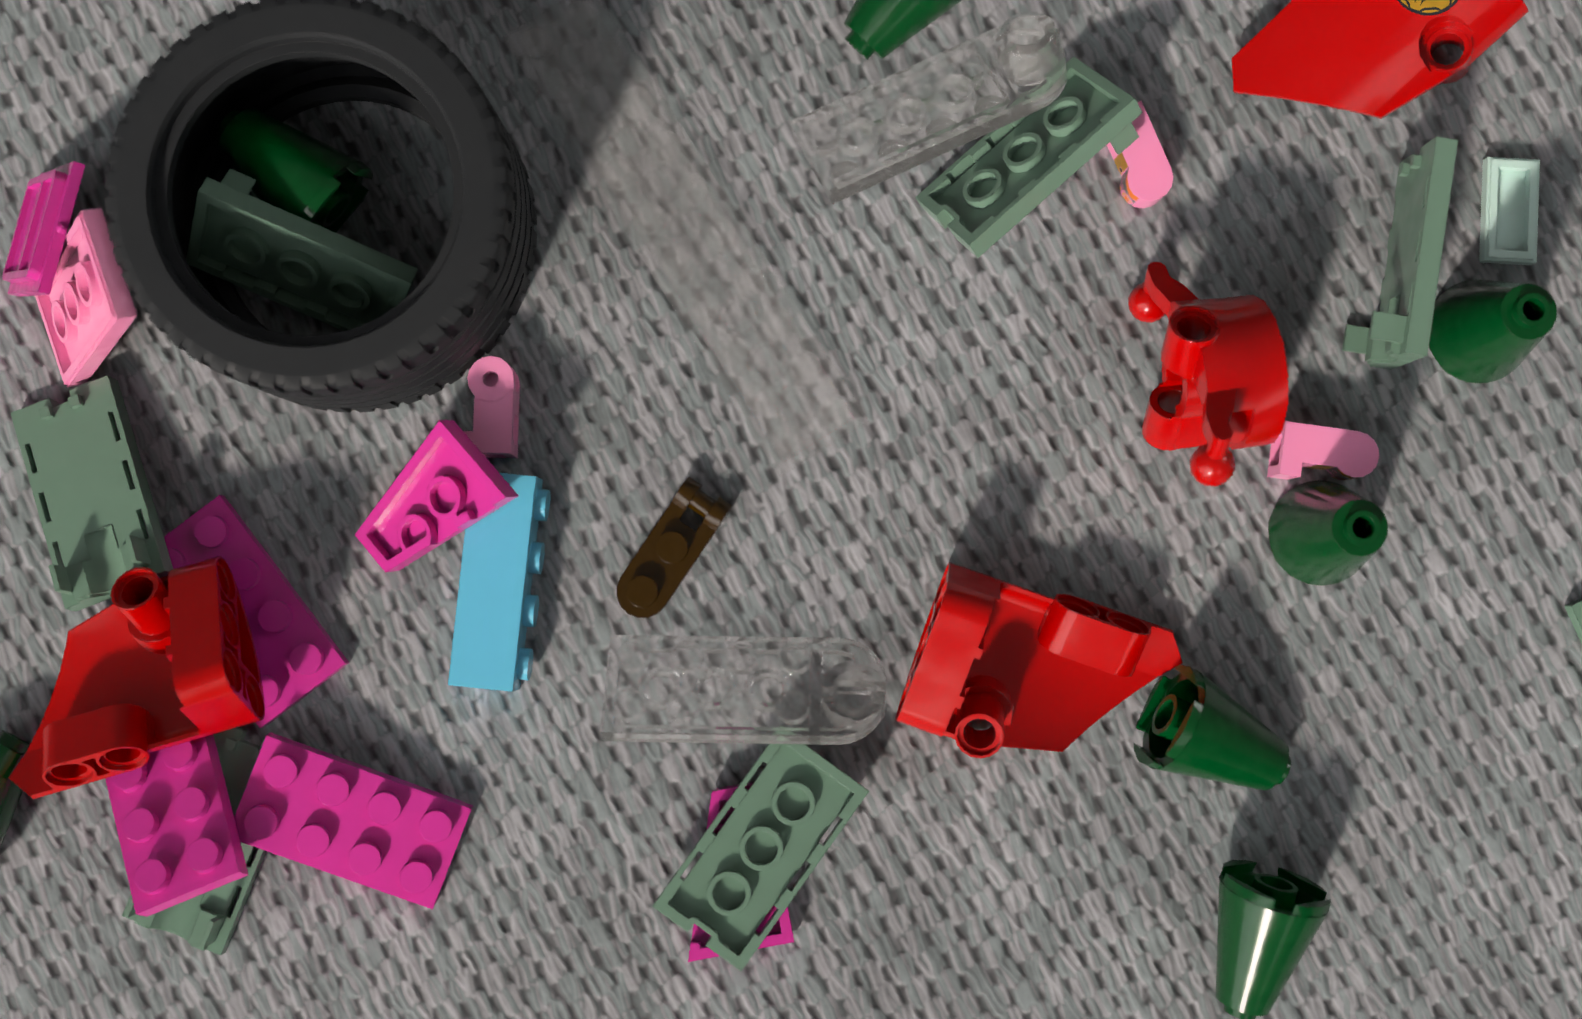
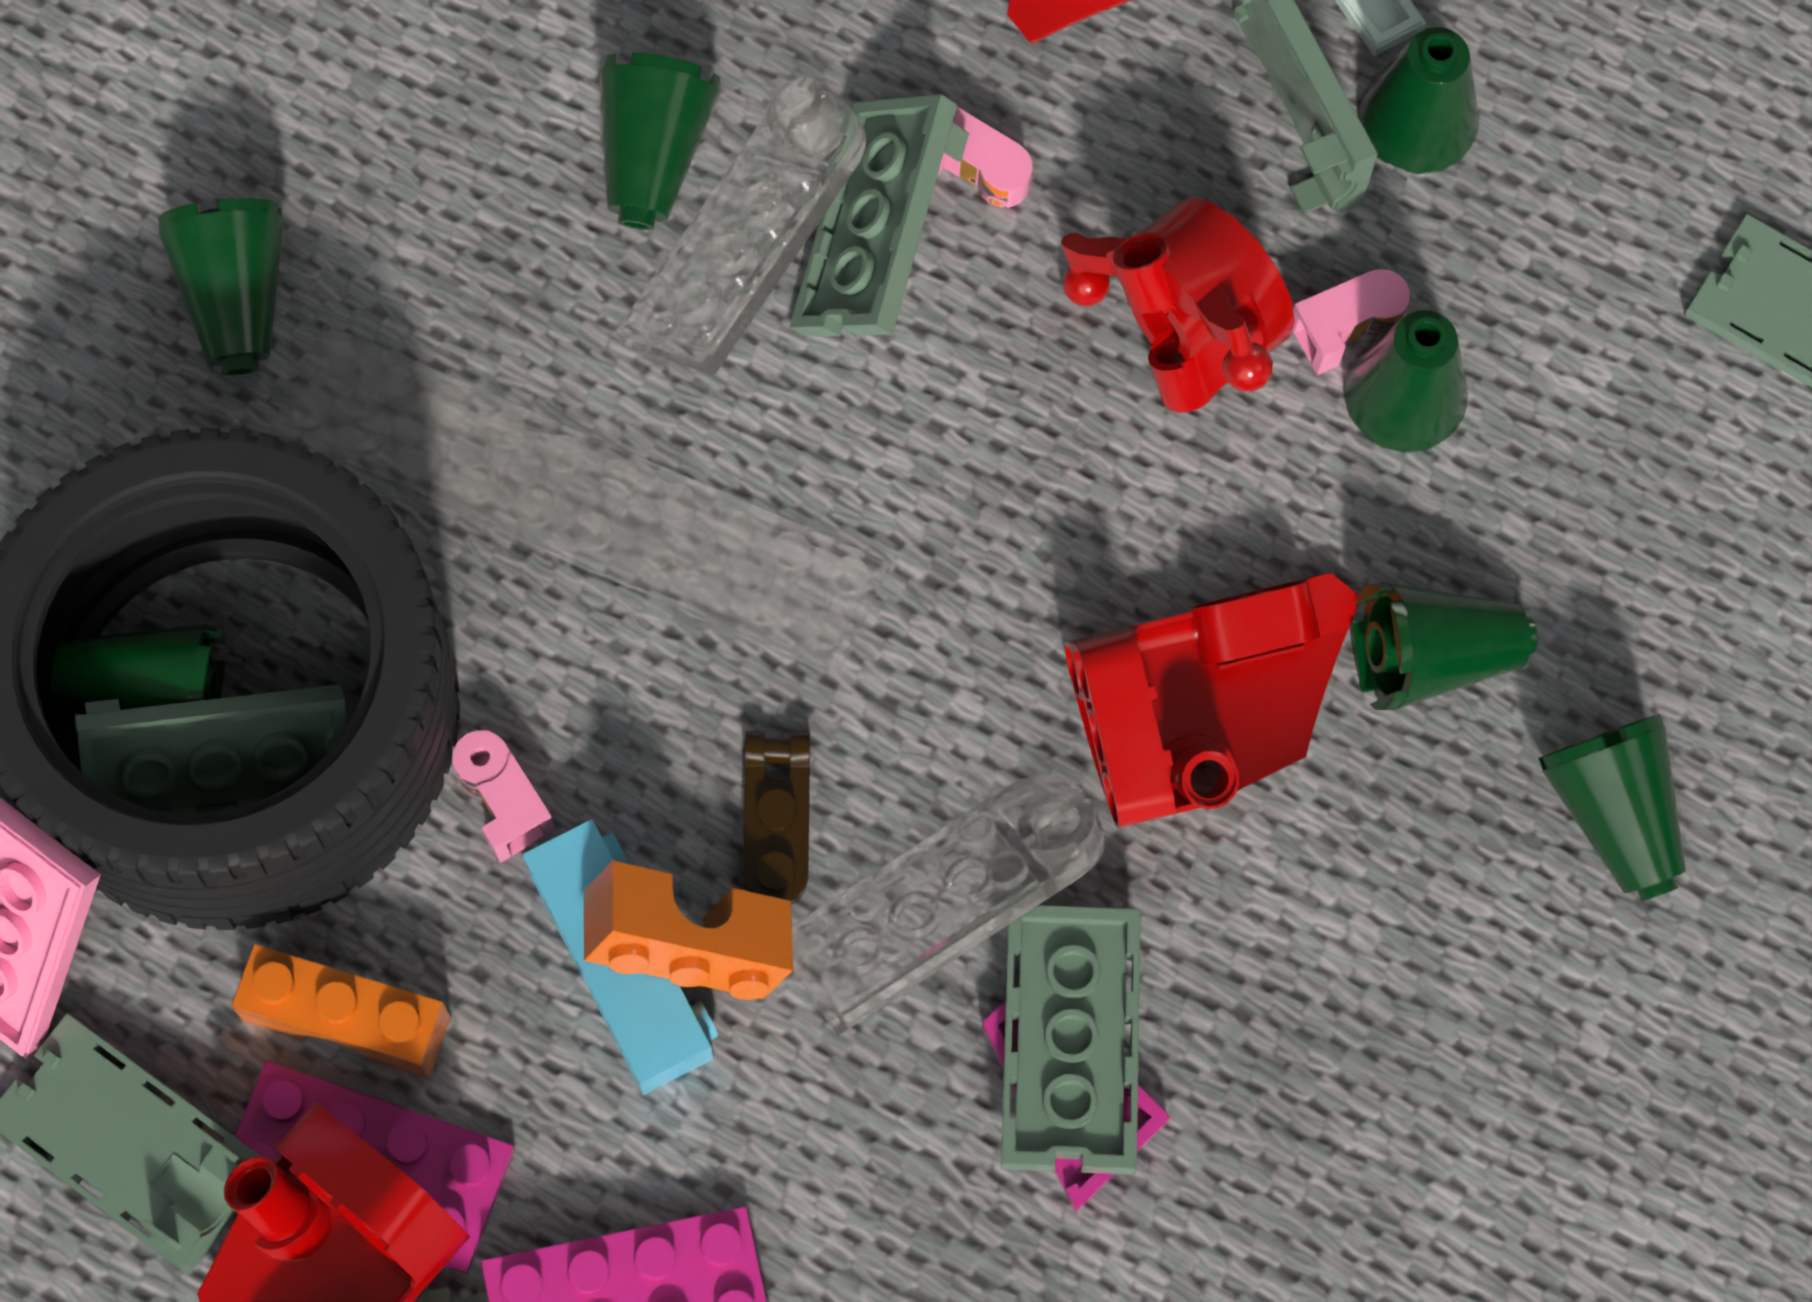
camera: 35 degrees left, 15 degrees down
(282, 498) = (344, 1008): none -> orange arch
(433, 499) = (500, 909): dark pink wing -> none
(508, 581) = (639, 929): none -> orange arch

